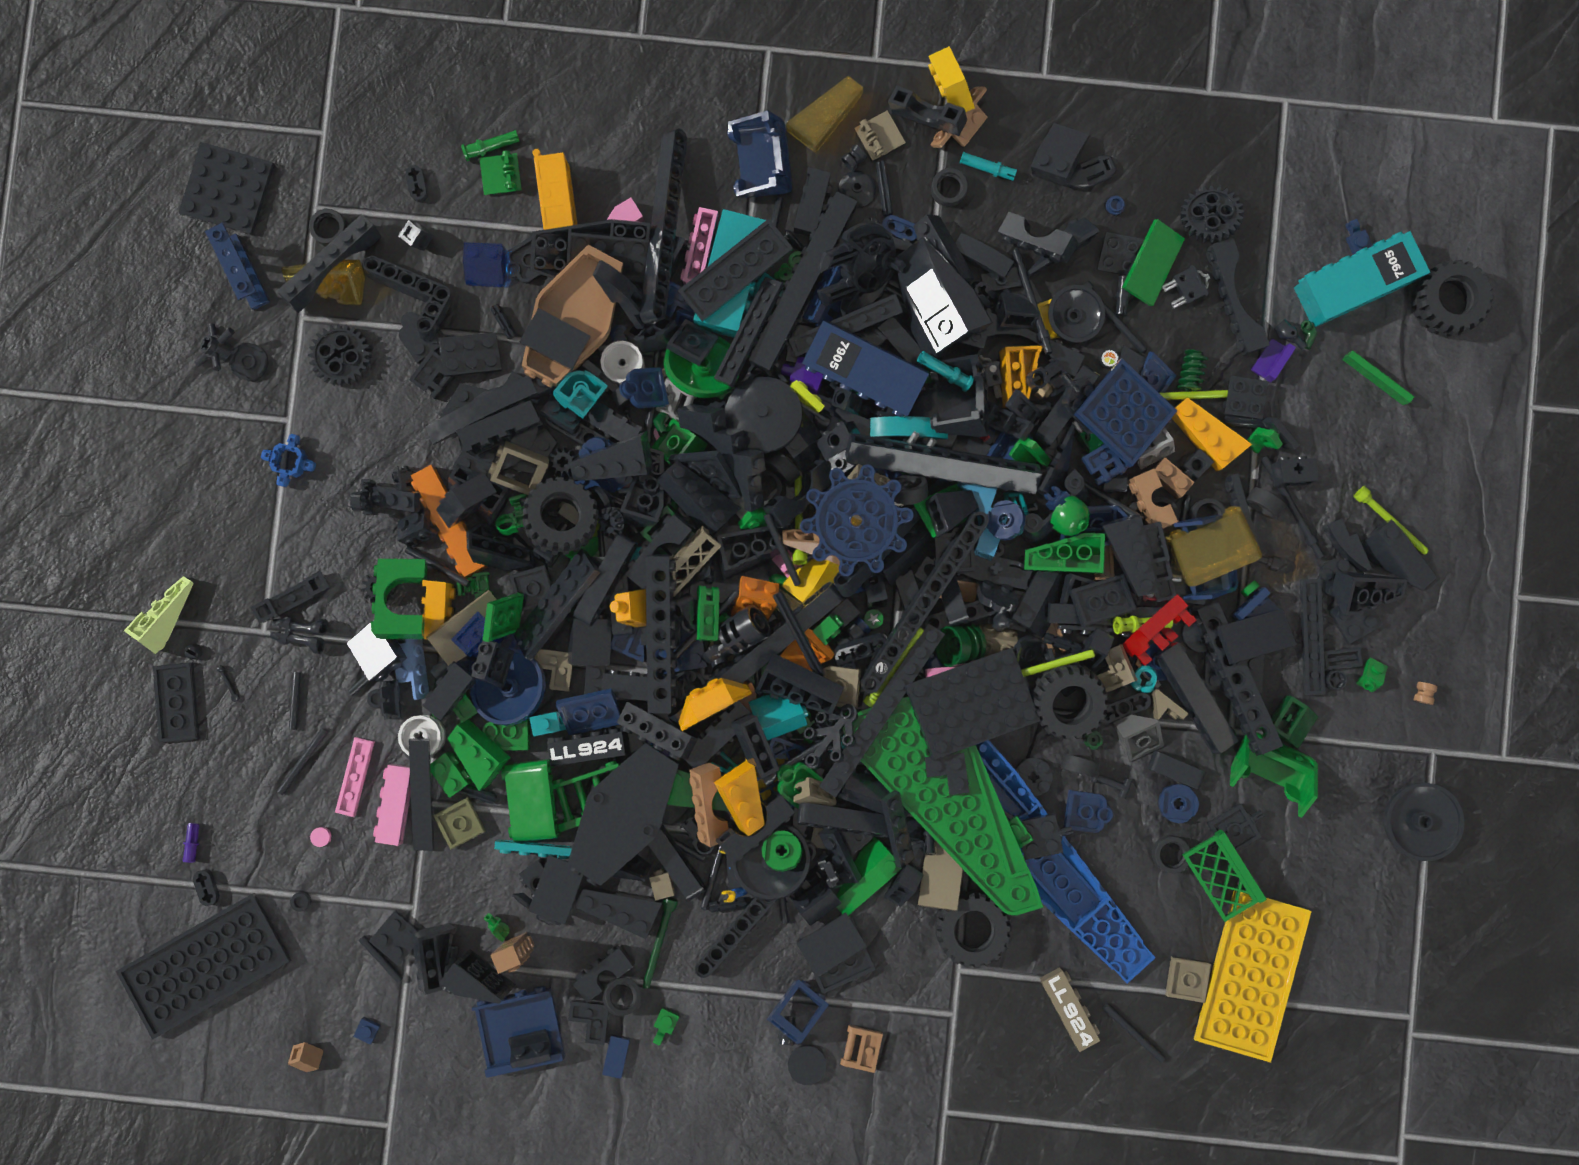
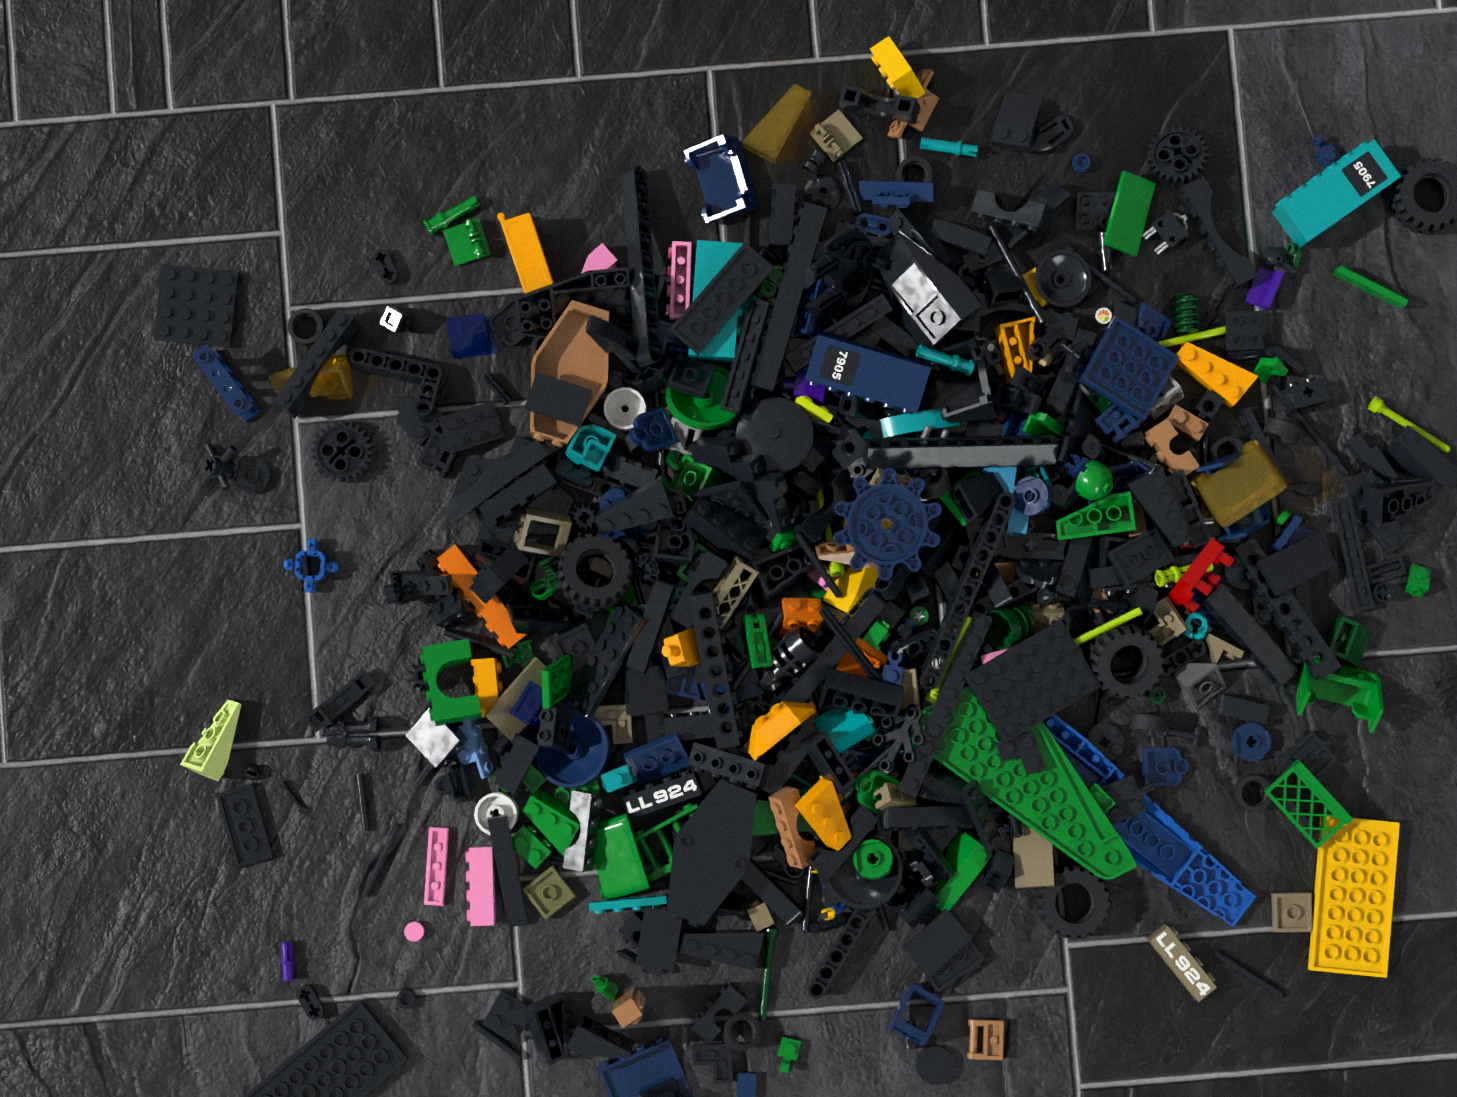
camera: 15 degrees left, 0 degrees up
(509, 747) = (586, 807): none -> arch
(837, 670) = (893, 672): none -> dark blue plate
(928, 199) = (896, 192): none -> dark blue bracket

